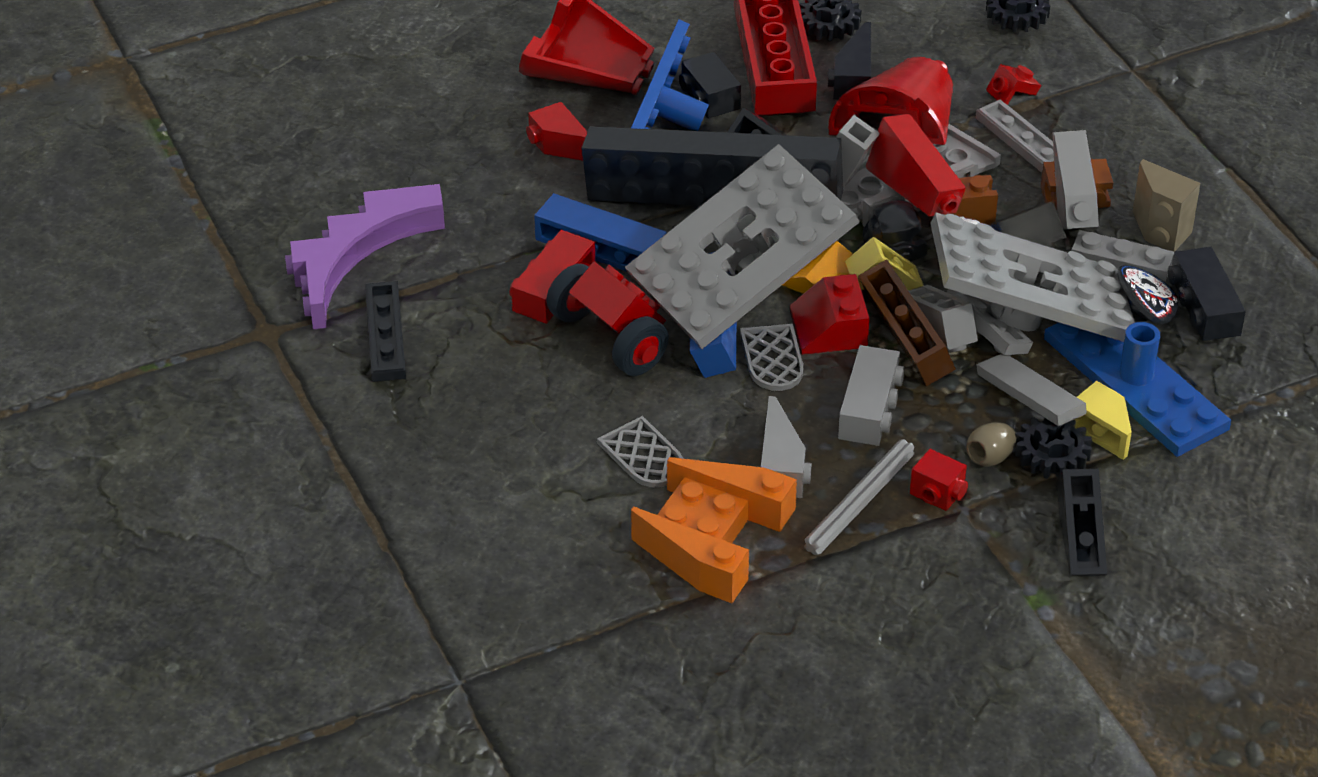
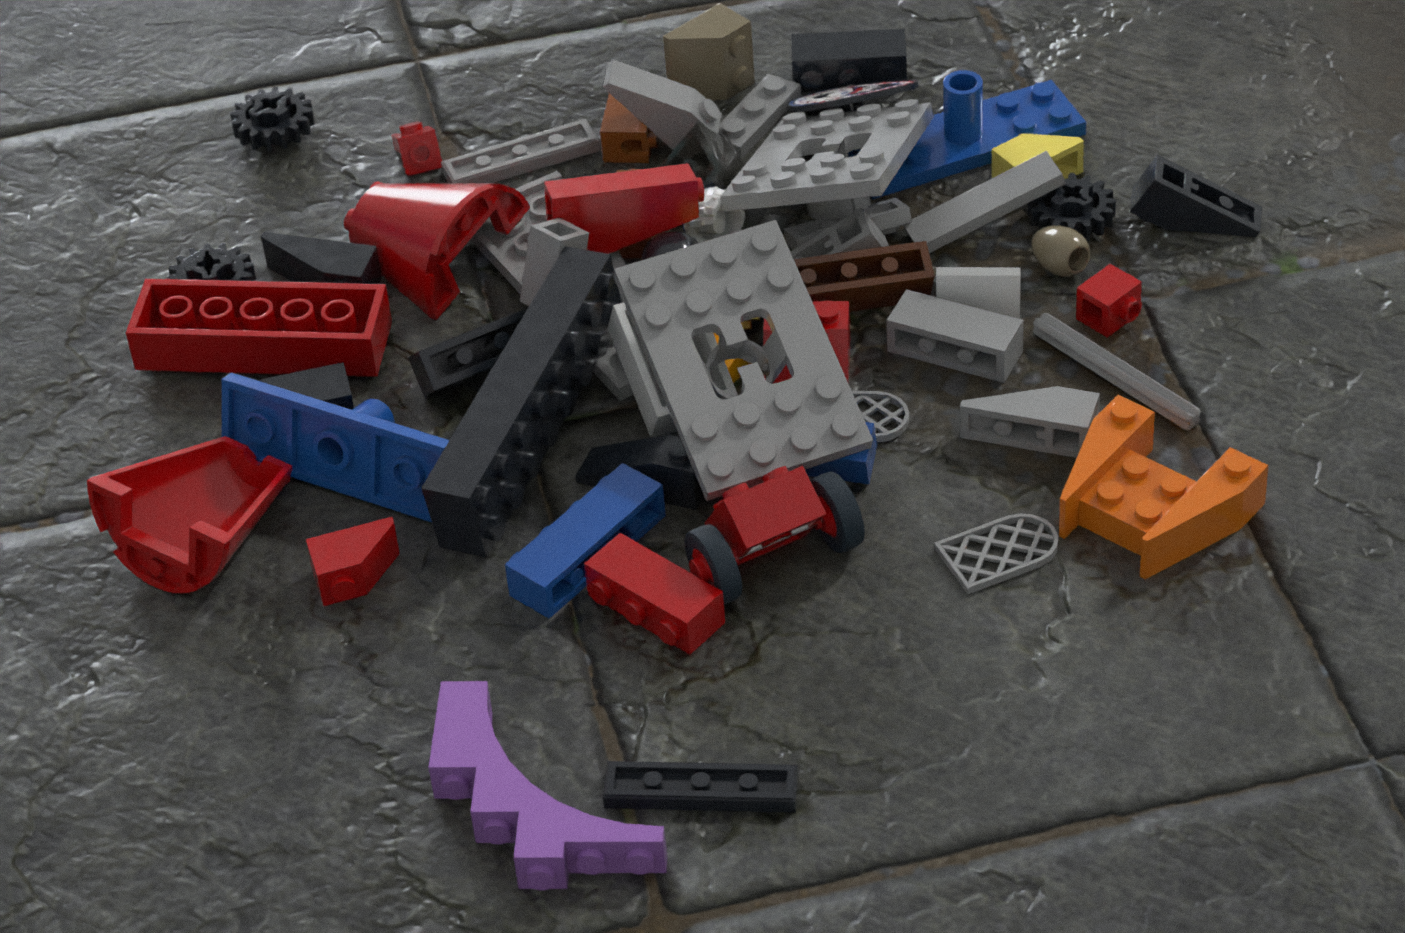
camera: 75 degrees left, 0 degrees up
(932, 402) = (981, 287): none -> white slope

